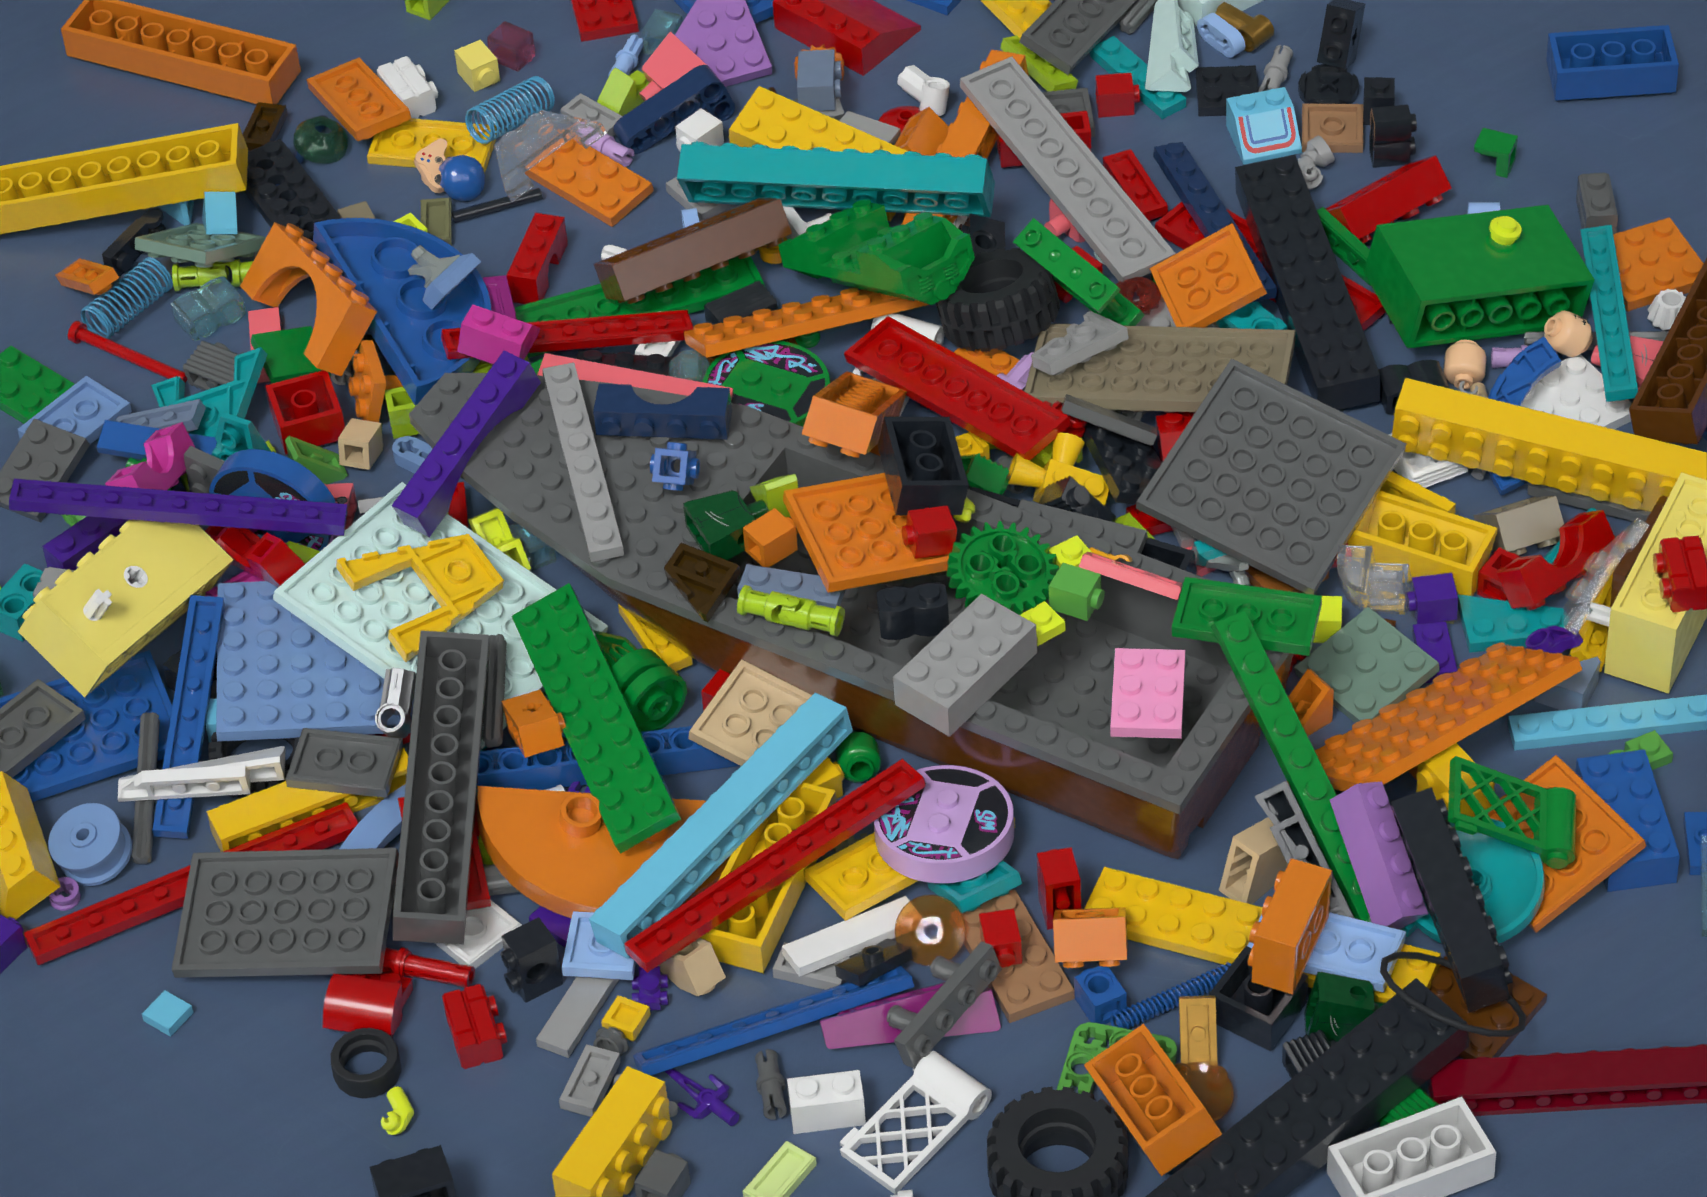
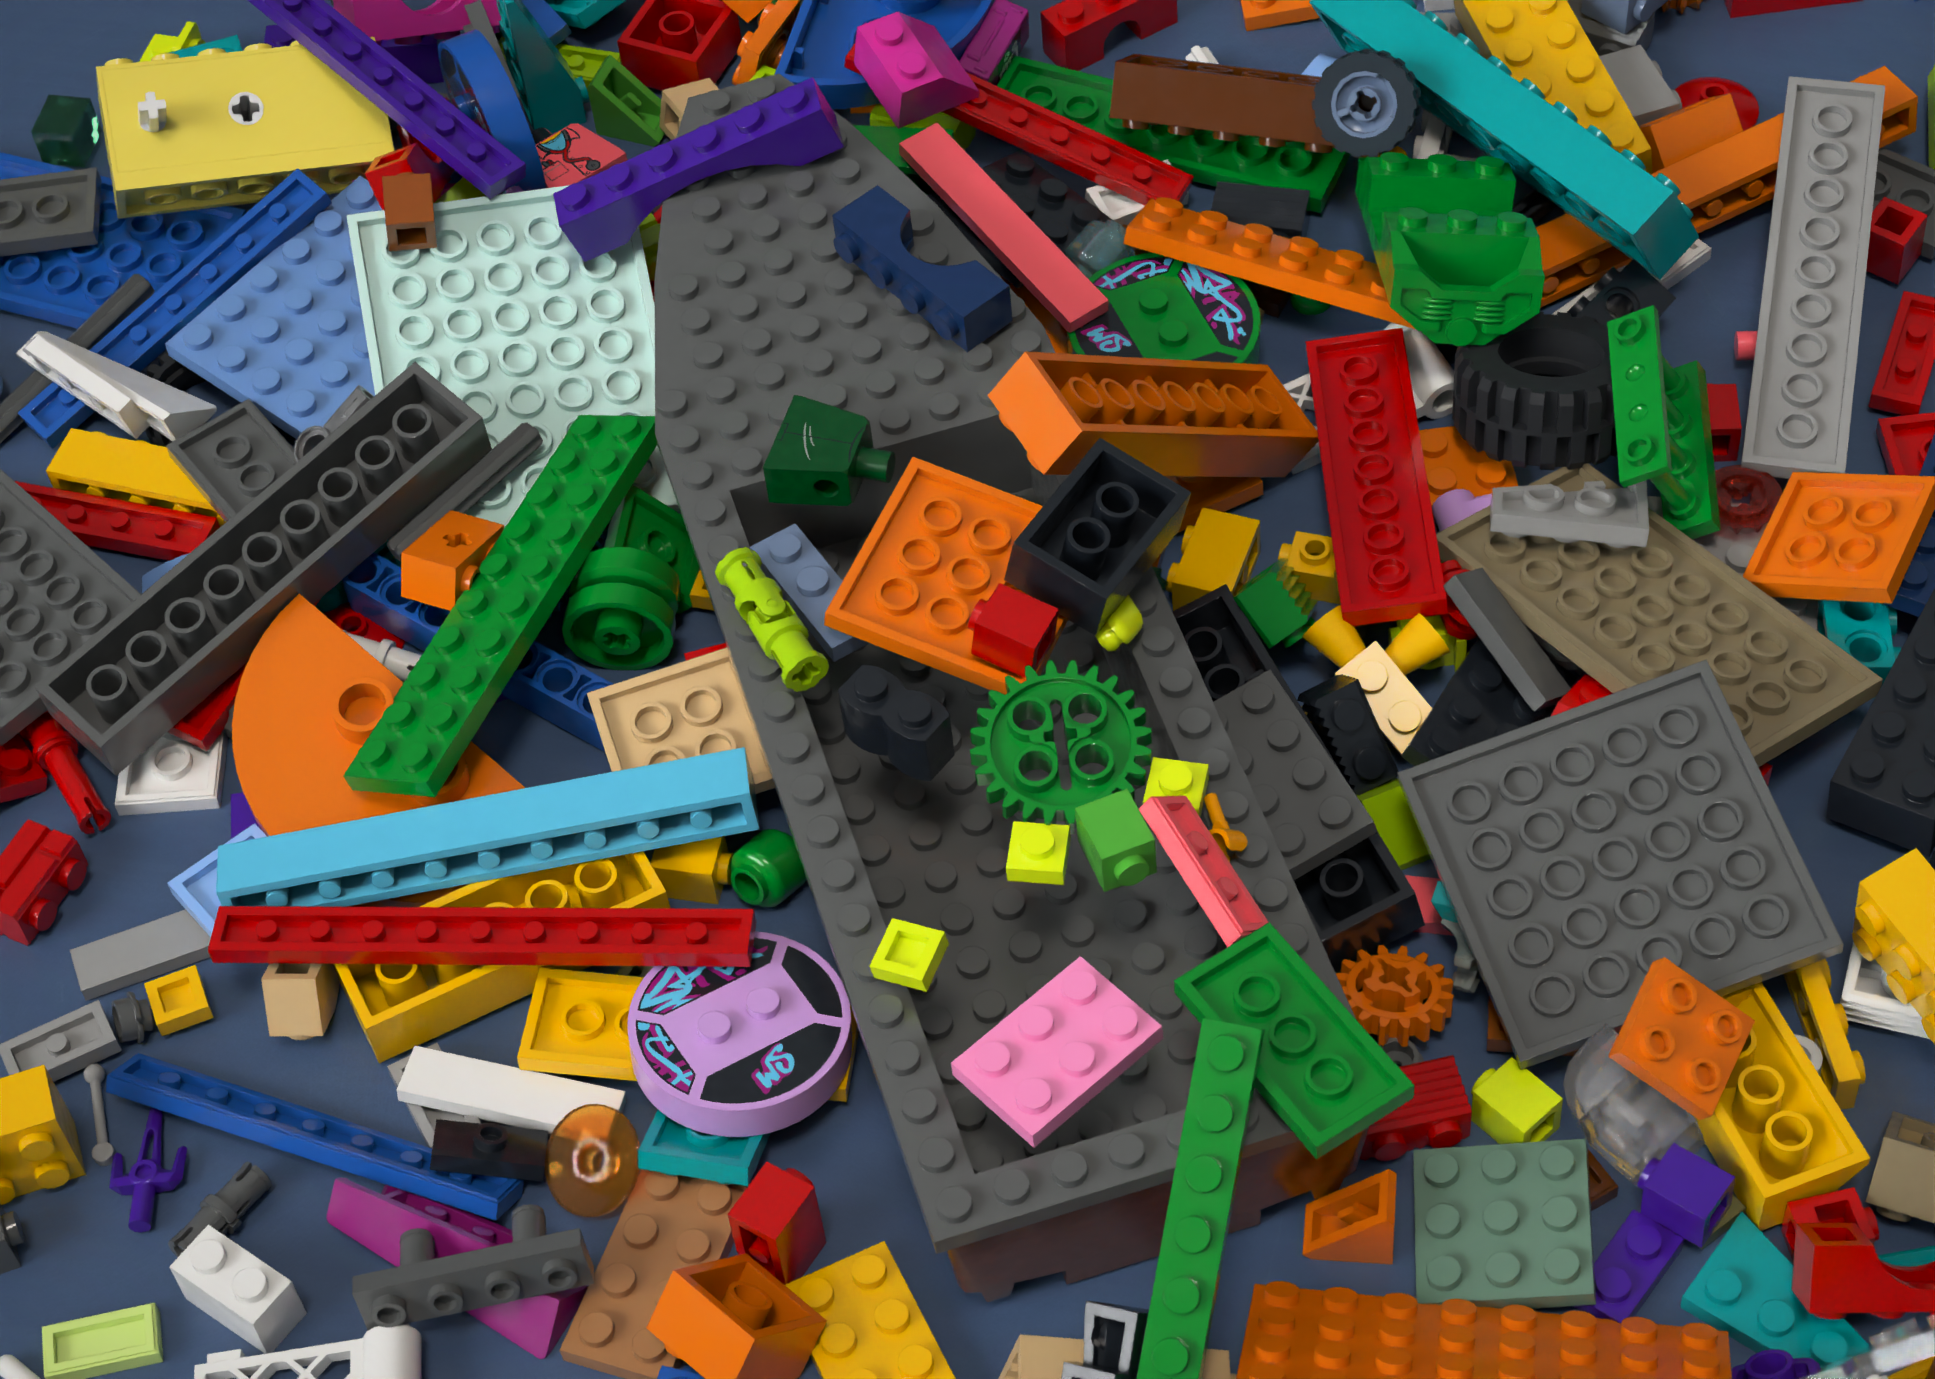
camera: 45 degrees right, 5 degrees up
(316, 564) = (409, 211): none -> dark orange brick
(450, 569) = (559, 328): yellow wing -> none
(531, 960) = (146, 846): black brick -> none
(583, 462) = (773, 278): light grey plate -> none
(650, 988) = (238, 990): dark purple piece -> none
(663, 466) = (846, 342): blue brick -> none
(701, 578) = (727, 507): dark brown wing -> none
(755, 209) = (1375, 76): none -> black wheel
(770, 538) = (849, 506): orange brick -> none
(772, 492) = (923, 444): lime slope -> none
(927, 90) = (1771, 67): white piece -> none
(965, 665) = (873, 840): light grey brick -> none
(1002, 932) = (633, 1241): red brick -> none
(1037, 699) = (909, 954): none -> neon yellow plate
(1379, 527) = (1681, 1038): none -> orange plate

